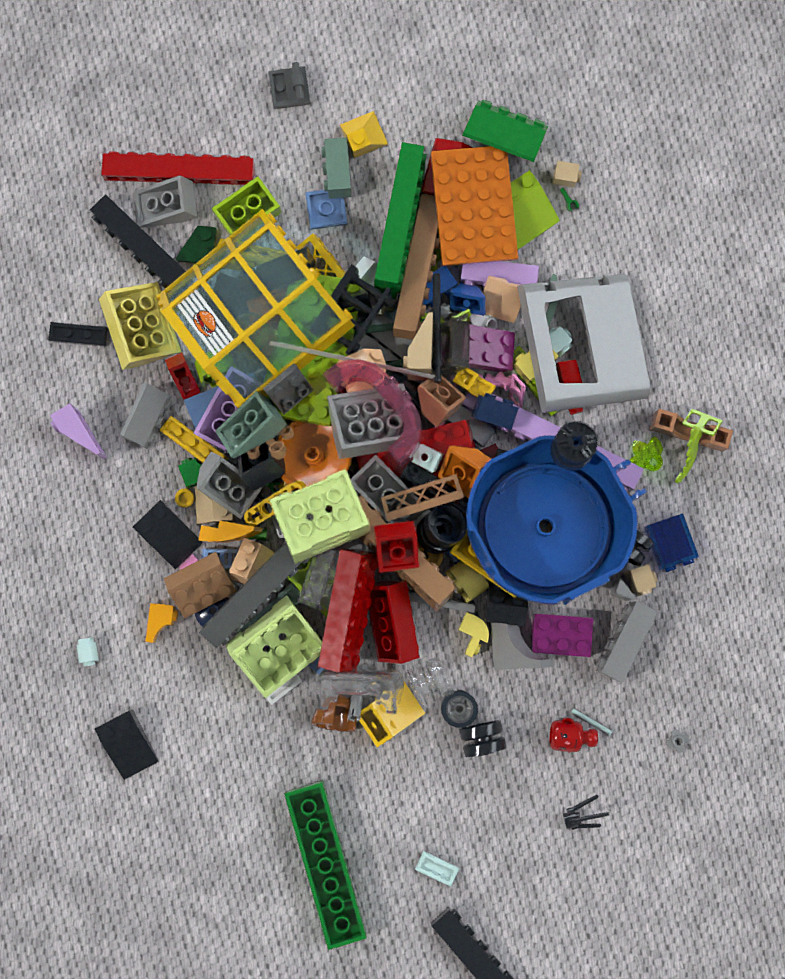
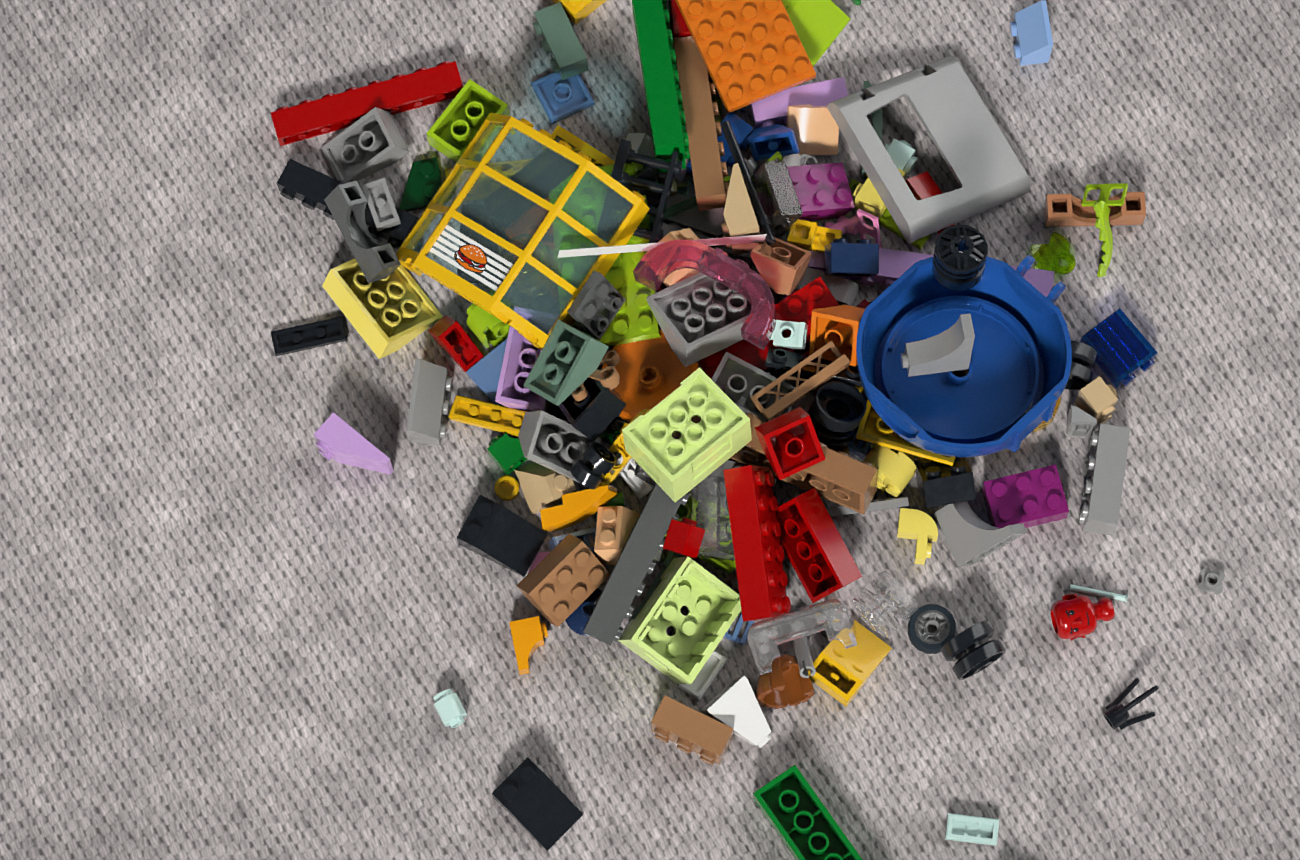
camera: 10 degrees left, 10 degrees down
(133, 249) = (348, 209): none -> dark grey arch
(159, 252) = (381, 204): none -> light grey plate
(247, 509) = (593, 465): none -> black wheel
(255, 730) = (691, 730): none -> medium nougat brick
(294, 589) = (684, 537): none -> red brick
(294, 725) = (740, 710): none -> white slope
(533, 518) = (942, 352): none -> light grey arch
(692, 278) = (1032, 34): none -> light blue slope

